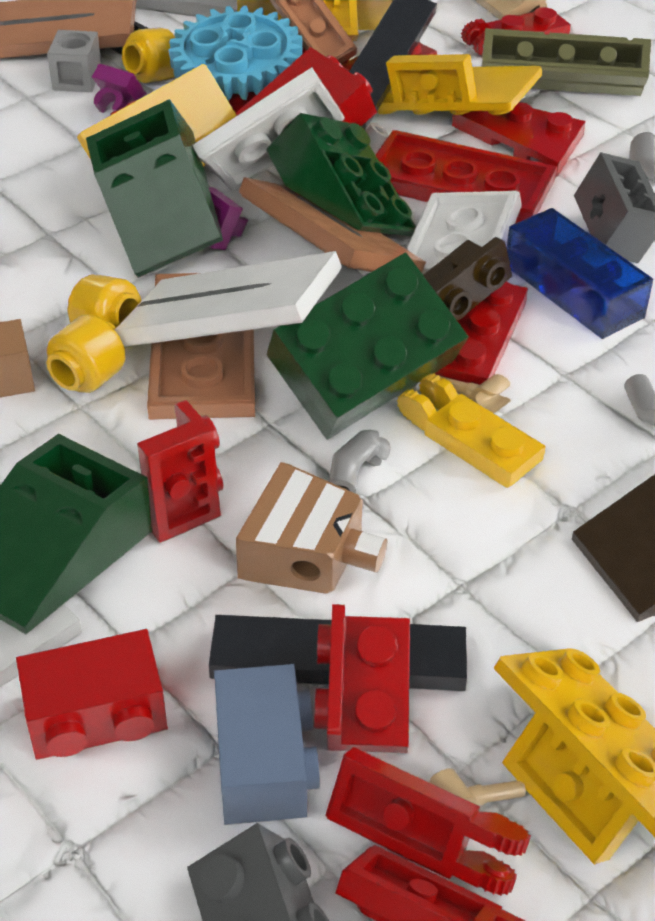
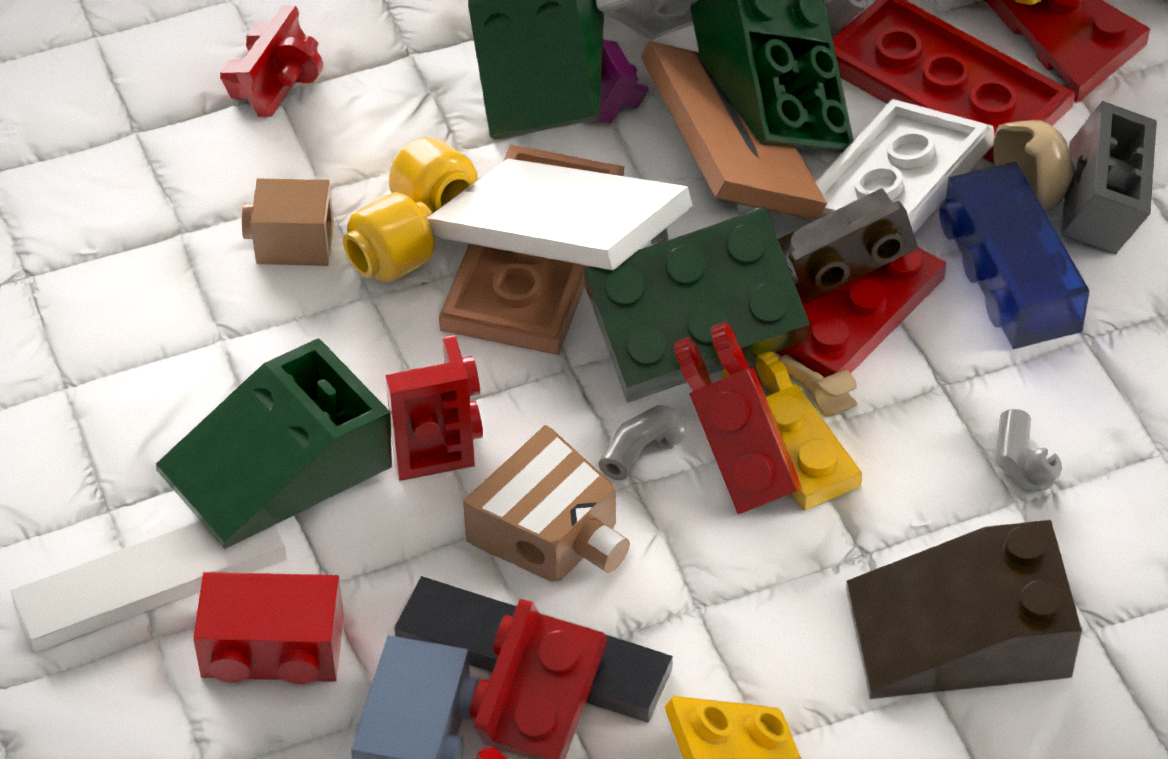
camera: 20 degrees right, 5 degrees up
(443, 427) = (738, 423): none -> red hinge
(563, 195) = (1041, 156): none -> tan hair

